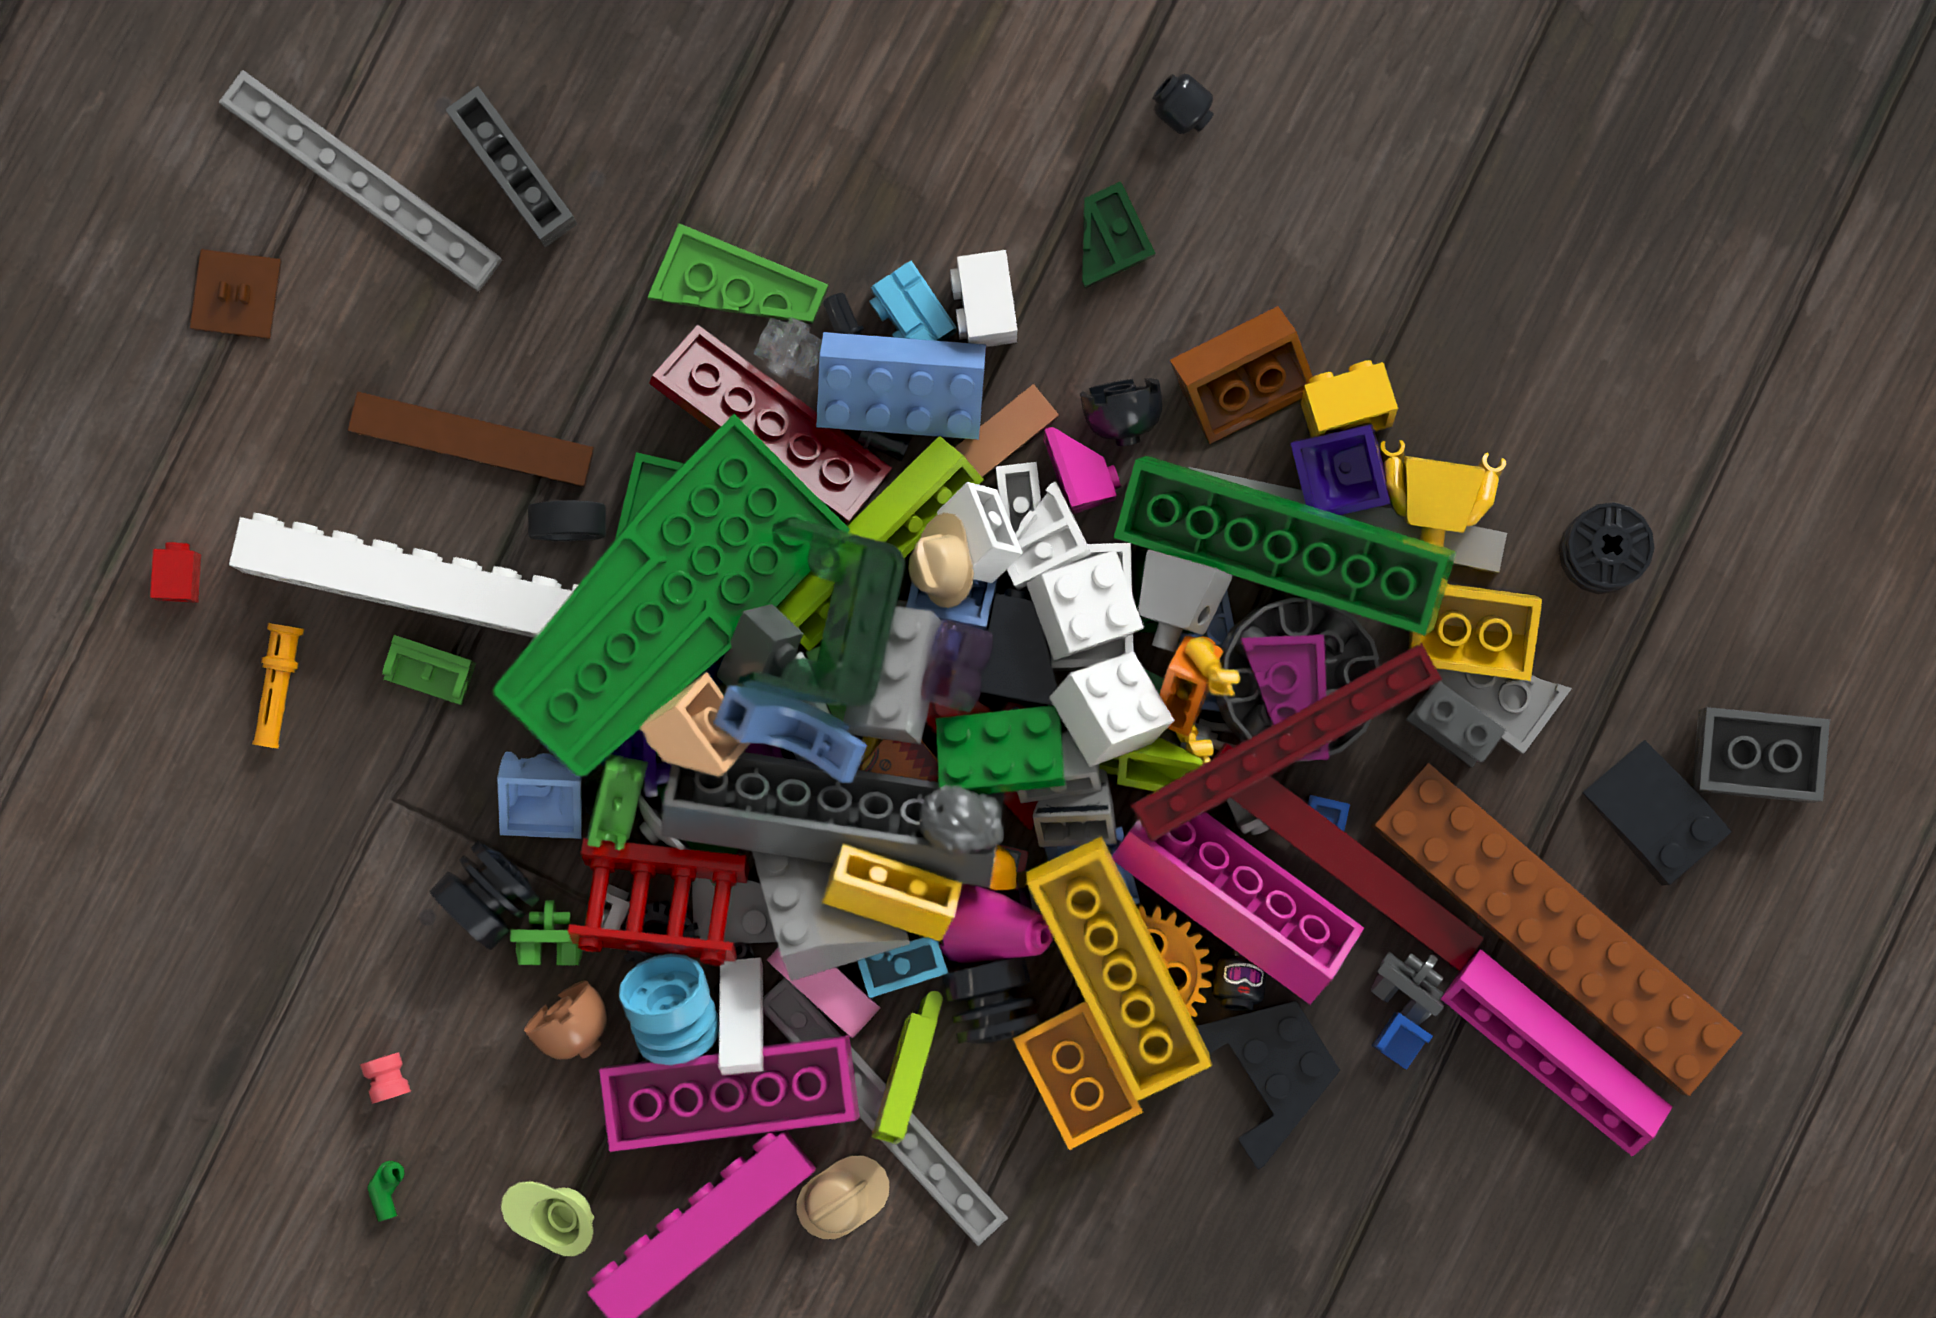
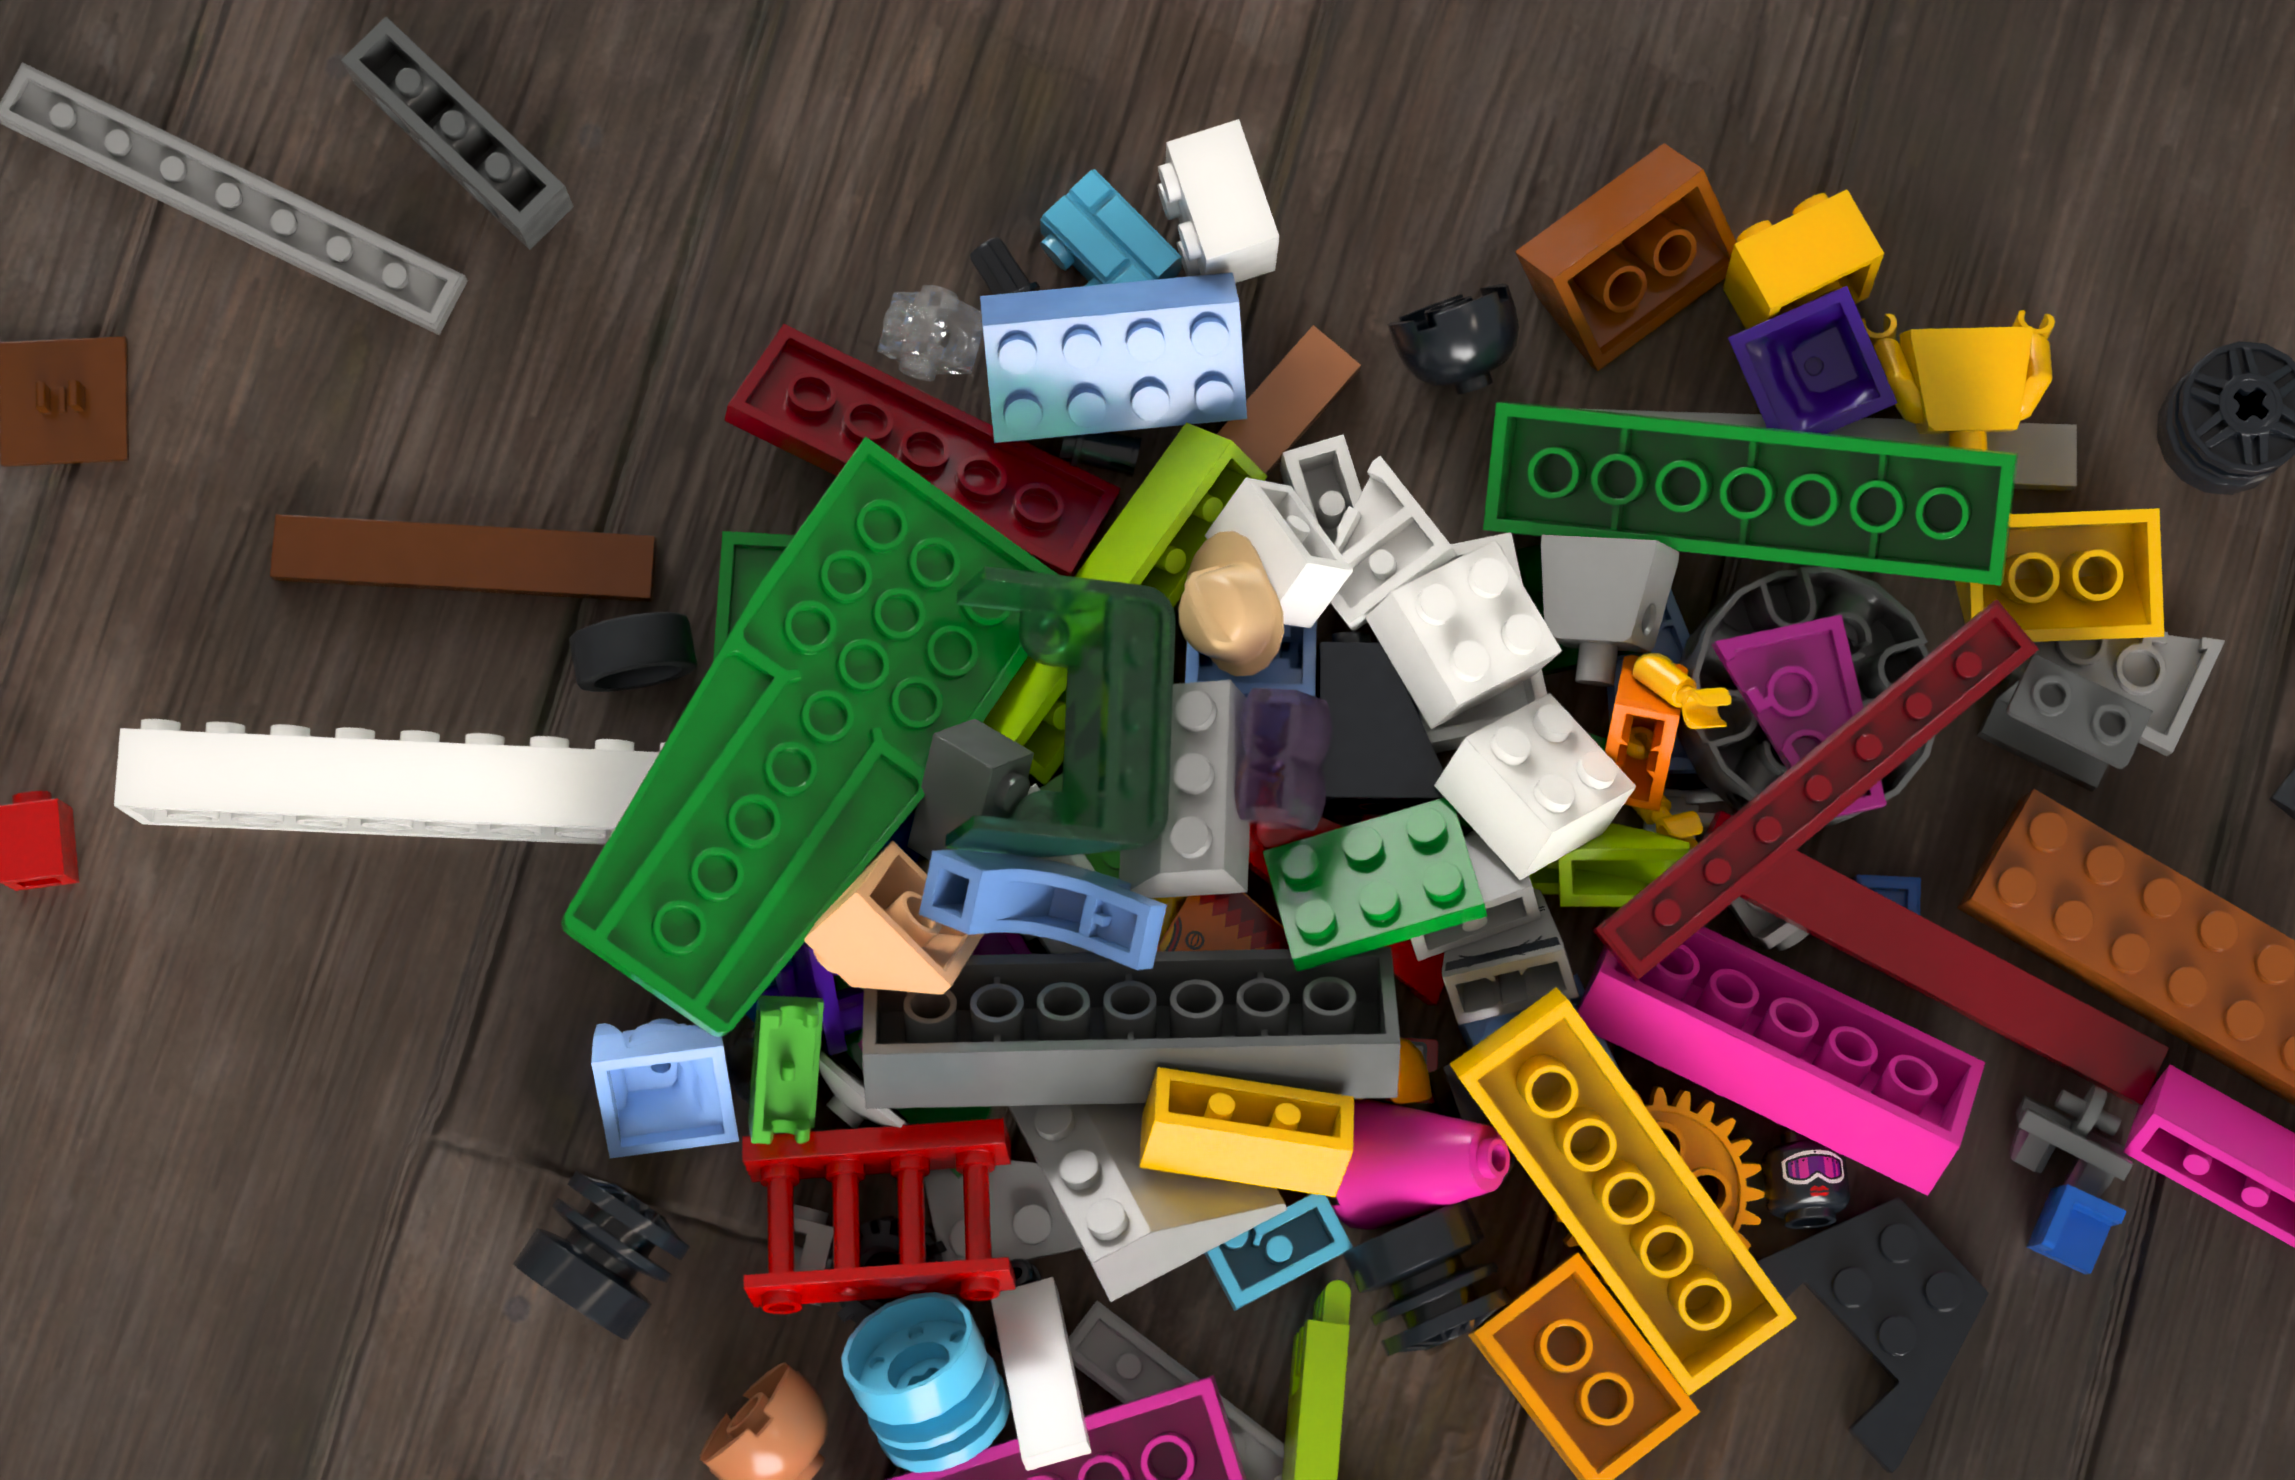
camera: 15 degrees left, 5 degrees down
(279, 665) = (220, 954): light orange pin -> none
(428, 670) = (455, 921): bright green hinge -> none
(530, 941) = (686, 1316): bright green hips -> none
(727, 278) = (817, 246): bright green wing -> none
(833, 995) = (1174, 1314): bright pink beam -> none
(960, 820) = (1335, 997): dark grey hair -> none
(1080, 472) = (1410, 438): dark pink slope -> none
(1111, 235) = (1390, 84): dark green wing -> none

